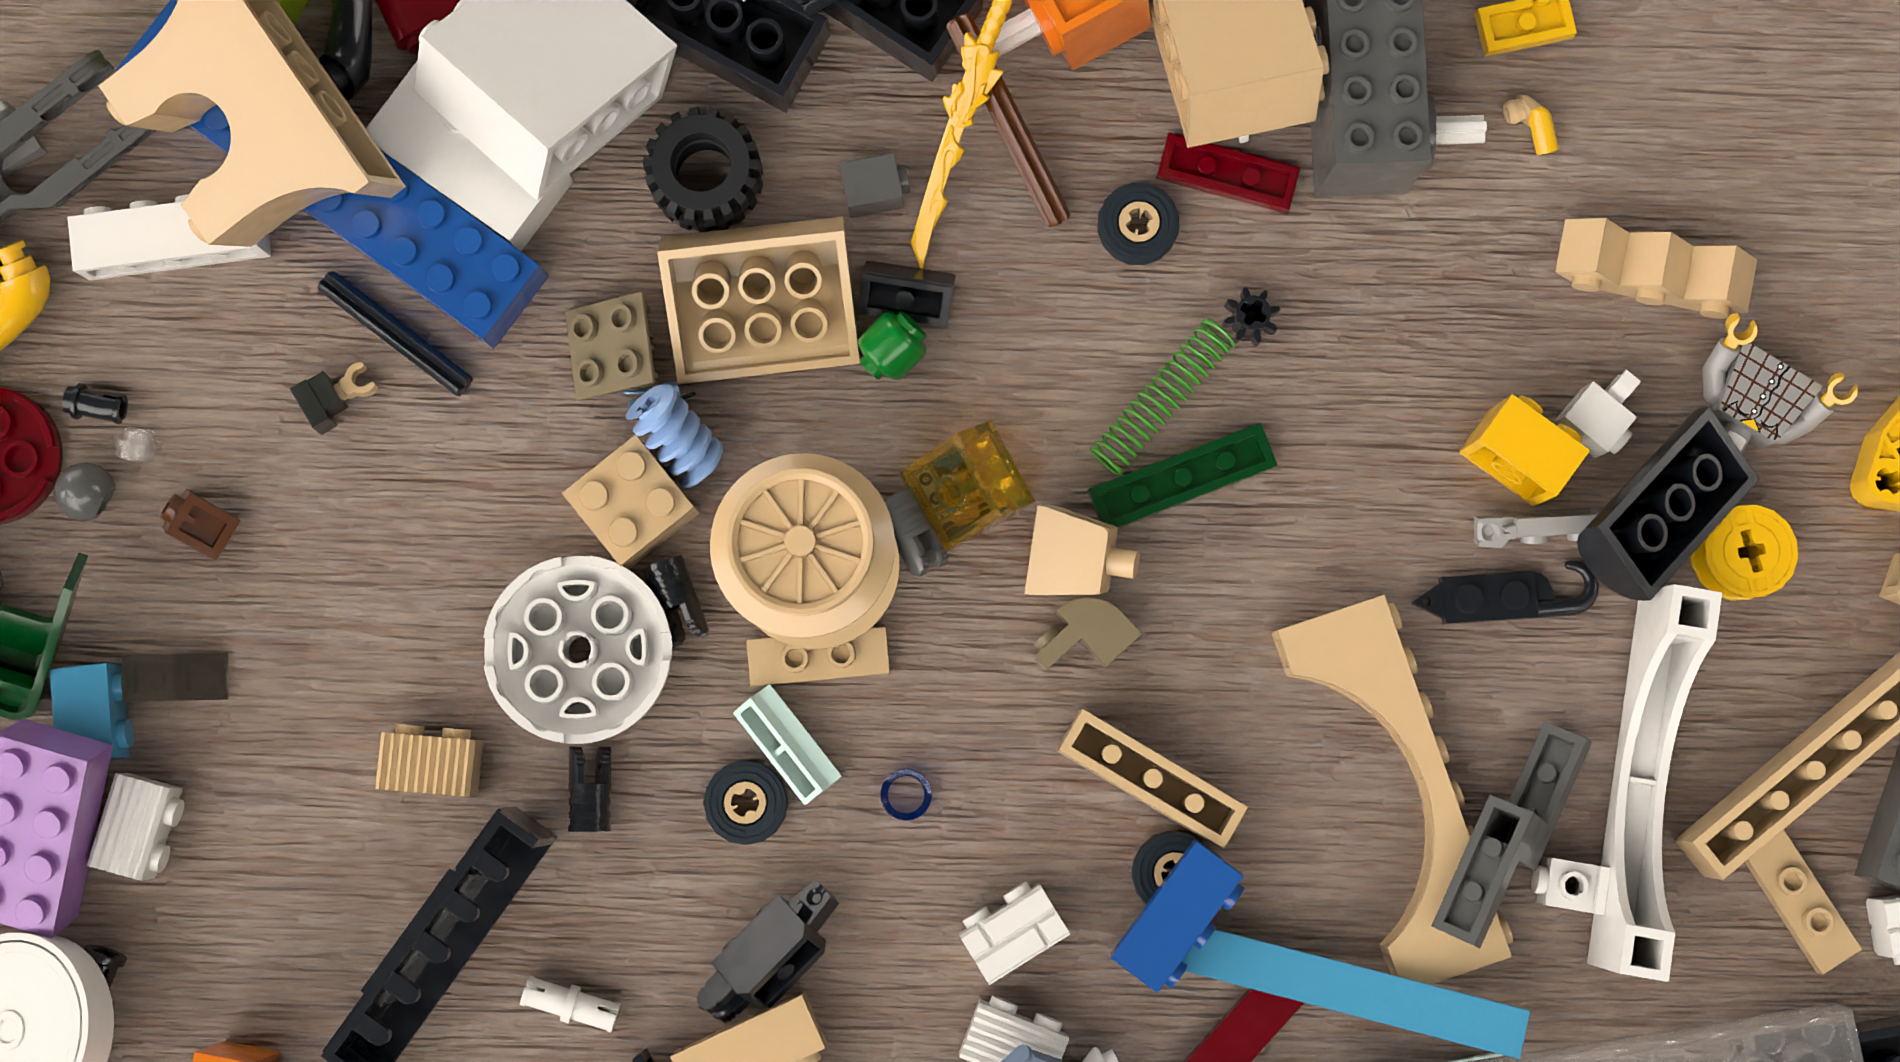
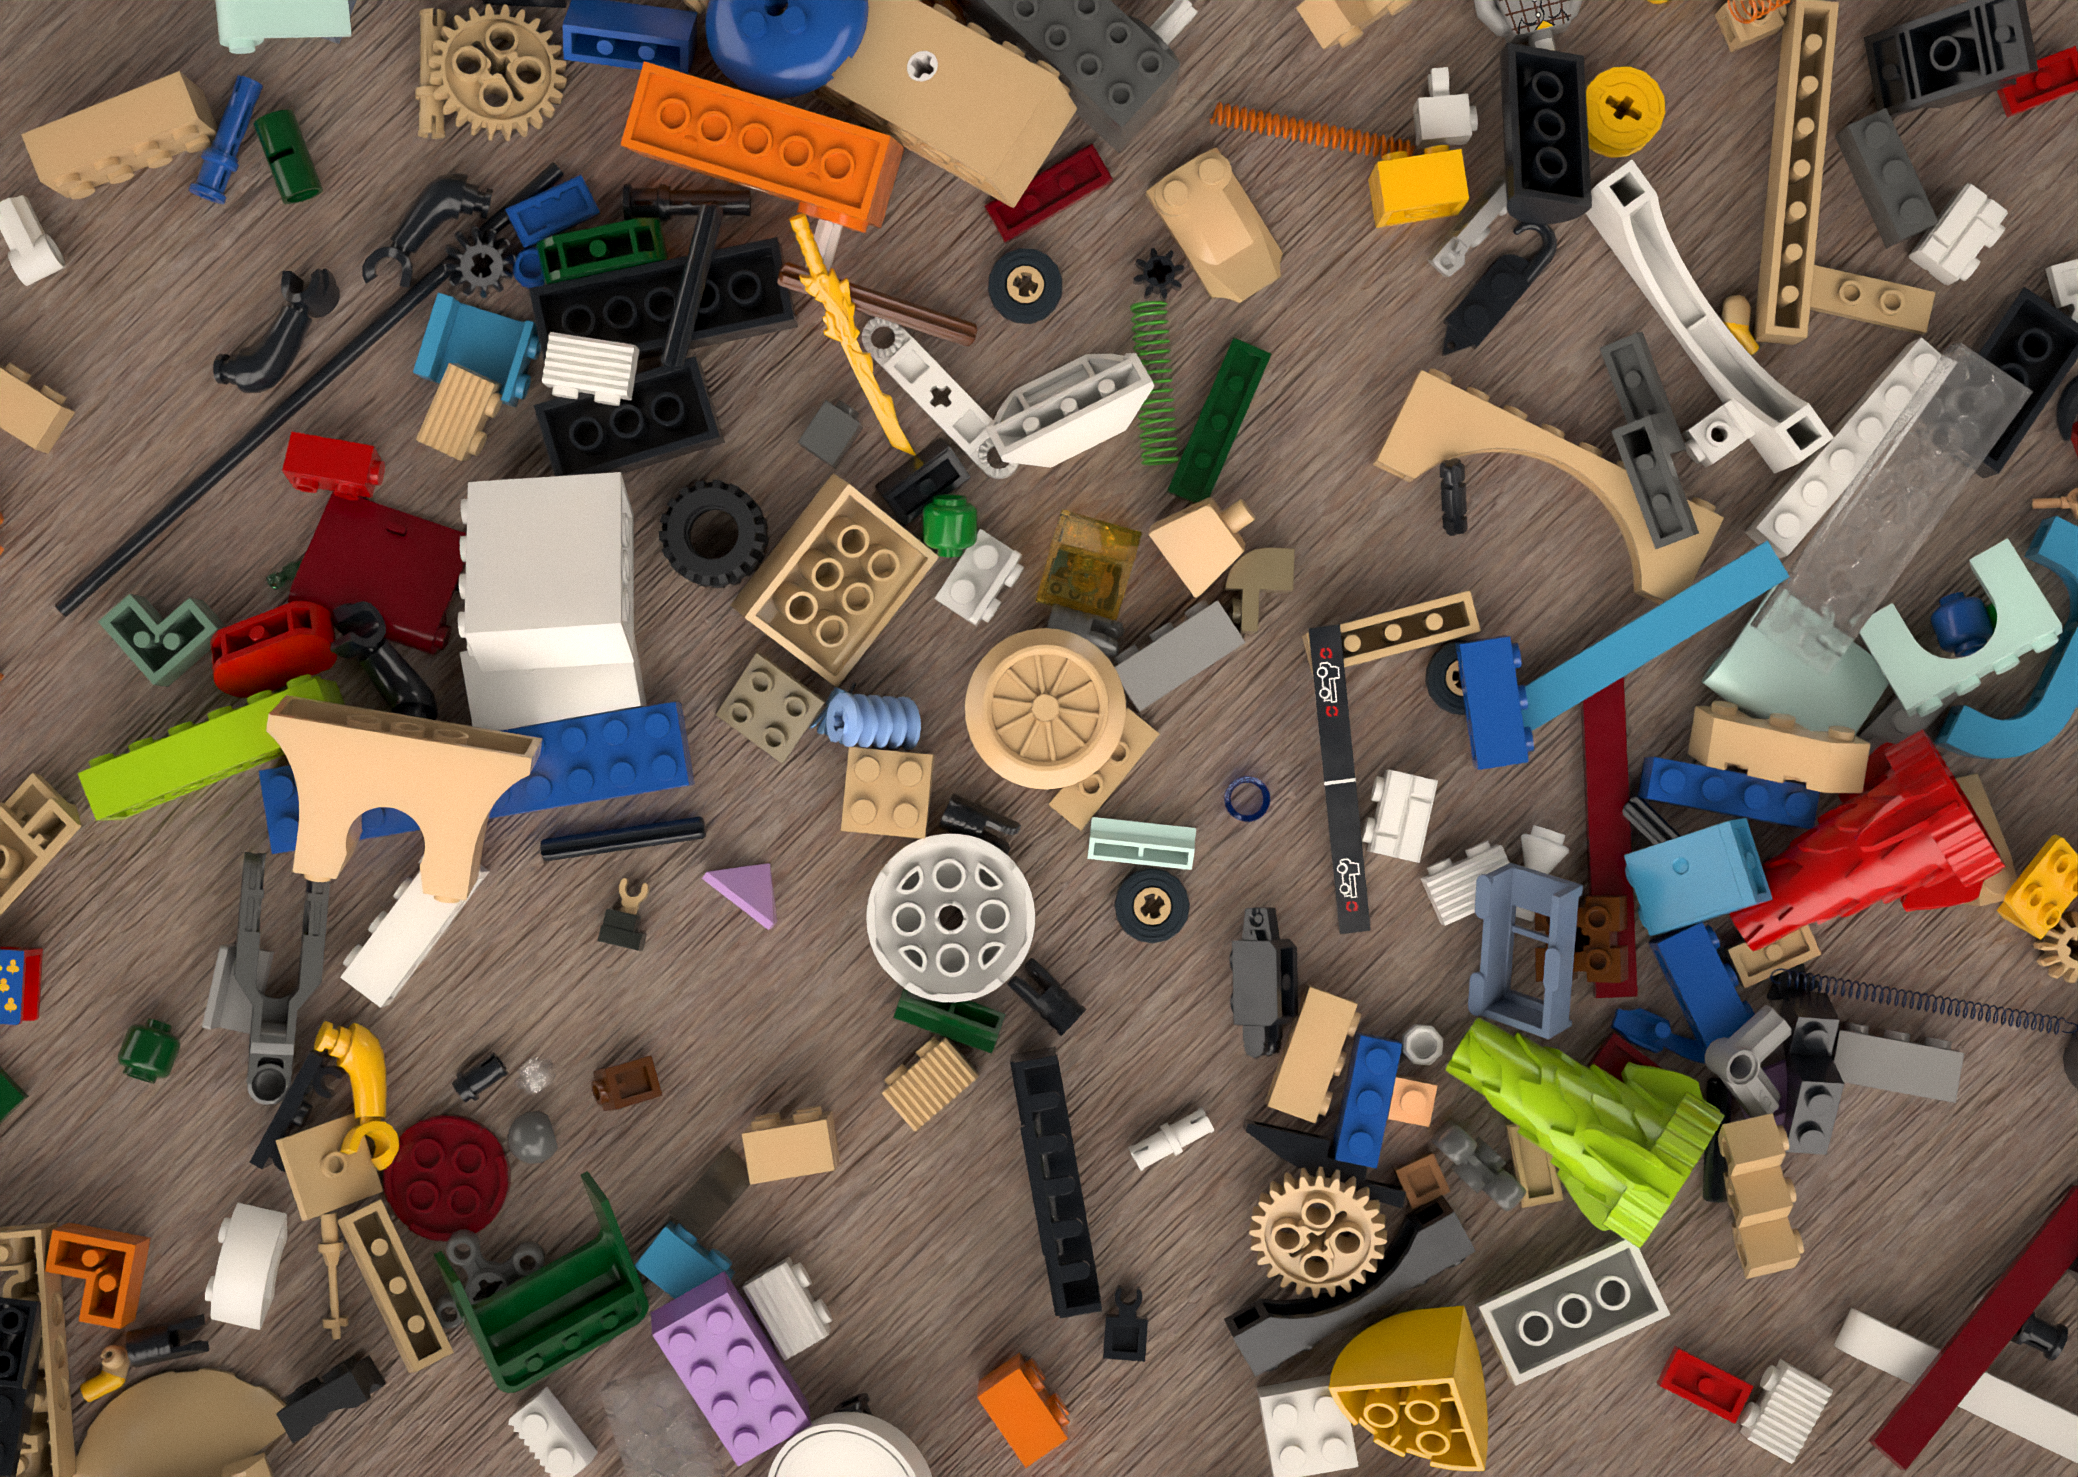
camera: 40 degrees left, 5 degrees up
(267, 700) = (791, 1145): none -> tan brick
(447, 470) = (748, 889): none -> lavender slope
(501, 738) = (959, 1021): none -> dark green piece
(873, 412) = (979, 578): none -> white bracket
(965, 623) = (1177, 653): none -> light grey brick
(985, 274) = (918, 375): none -> white piece
(993, 852) = (1339, 778): none -> black sticker
(1074, 350) = (1070, 409): none -> white wedge
(1310, 721) = (1453, 496): none -> black axle
(1333, 326) = (1217, 227): none -> tan slope
(1478, 324) = (1311, 131): none -> orange piece
(1658, 1005) = (1839, 461): none -> white brick
(1678, 809) = (1737, 319): none -> arm

